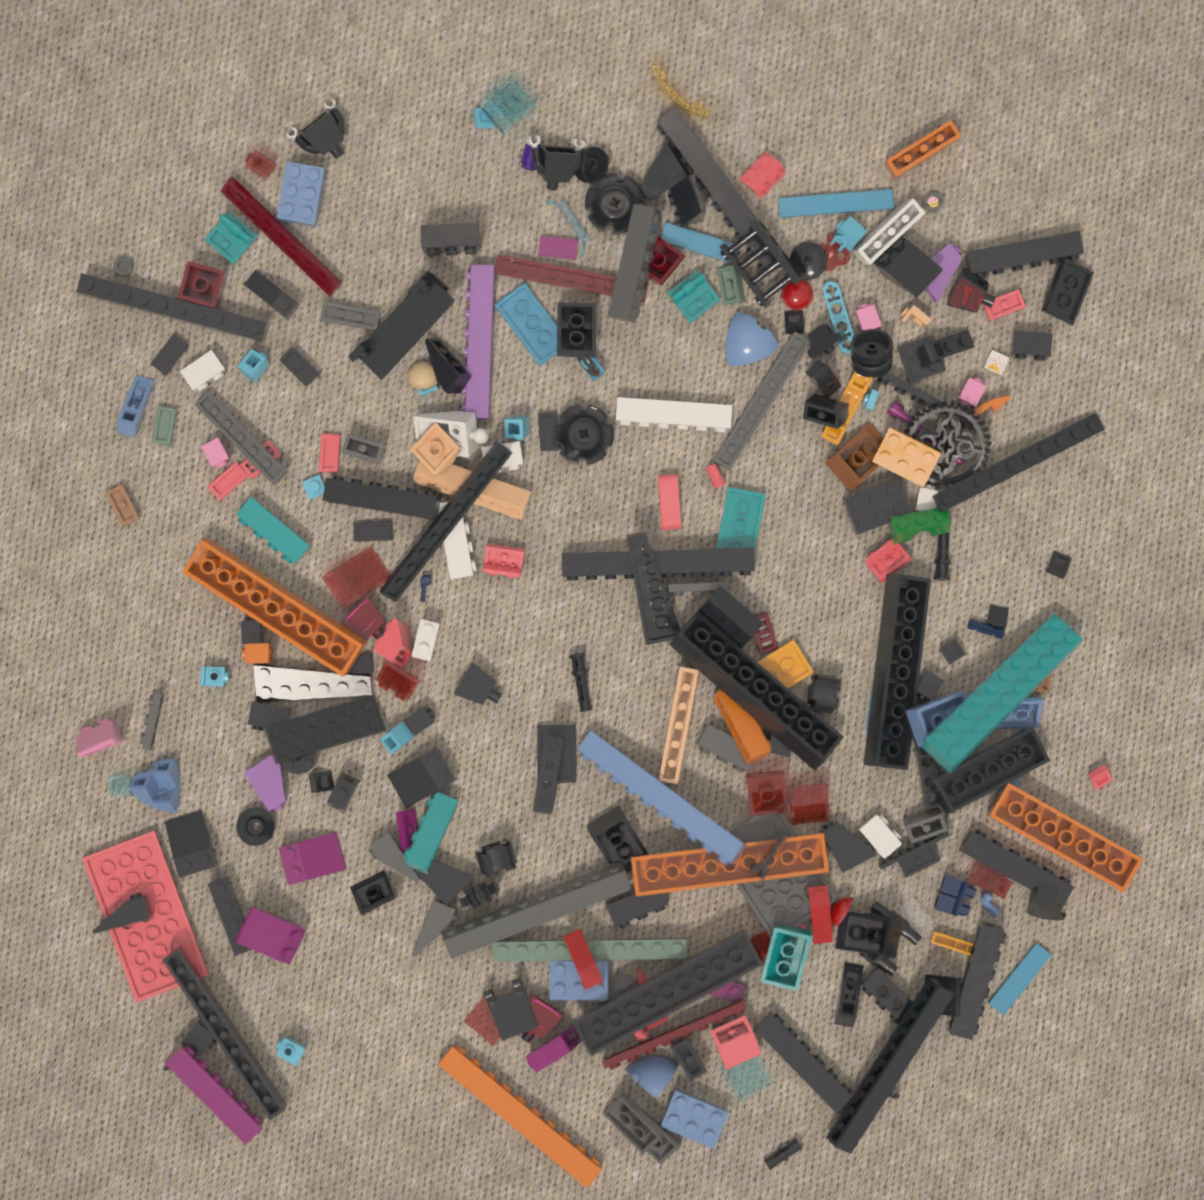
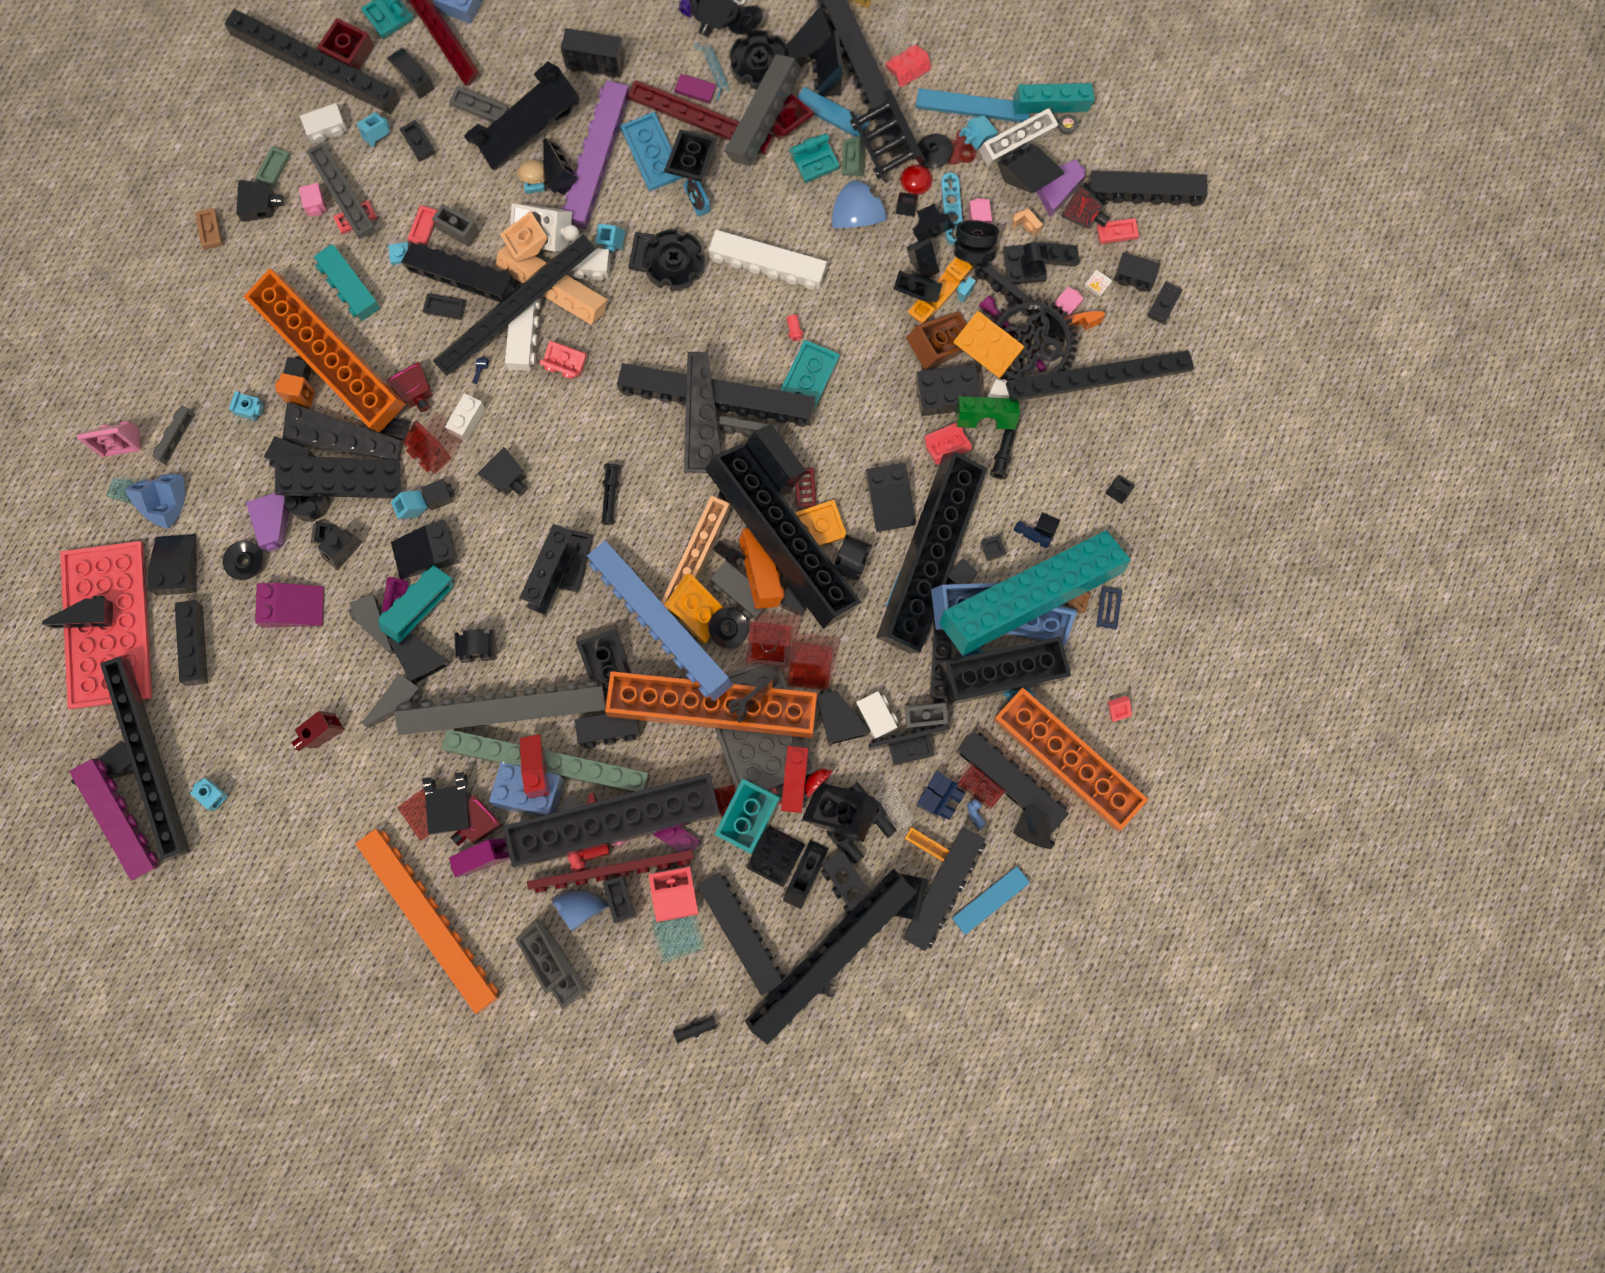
camera: 20 degrees right, 10 degrees down
(123, 266) = (279, 18): dark grey tile -> none
(134, 406) = (246, 143): medium blue slope -> none
(161, 466) = (256, 201): none -> black torso
(169, 355) = (297, 104): black tile -> none
(228, 481) = (317, 230): coral tile -> none
(270, 935) = (221, 667): magenta slope -> none
(356, 578) = (413, 343): clear red slope -> none
(372, 970) = (317, 730): none -> dark red torso
(373, 892) = (342, 655): black slope -> none
(395, 643) = (432, 410): coral slope -> none
(479, 895) = (446, 678): black gear -> none
(669, 501) = (741, 341): coral beam -> none
(692, 777) = (693, 606): none -> light orange plate
(694, 1118) = (609, 966): medium blue brick -> none
(707, 715) = (728, 553): none -> black bar
(732, 788) = (737, 624): none -> black dish
(762, 401) = (856, 268): dark grey plate -> none
(818, 985) = (775, 856): none -> black bracket
(845, 625) = (890, 497): none -> black slope
(914, 182) = (1056, 97): none -> teal brick
(922, 150) = (1071, 69): orange brick -> none
(1064, 369) = (1164, 303): none -> black plate
(1067, 291) = (1183, 230): black tile -> none
(1070, 677) = (1101, 606): none -> dark blue tile

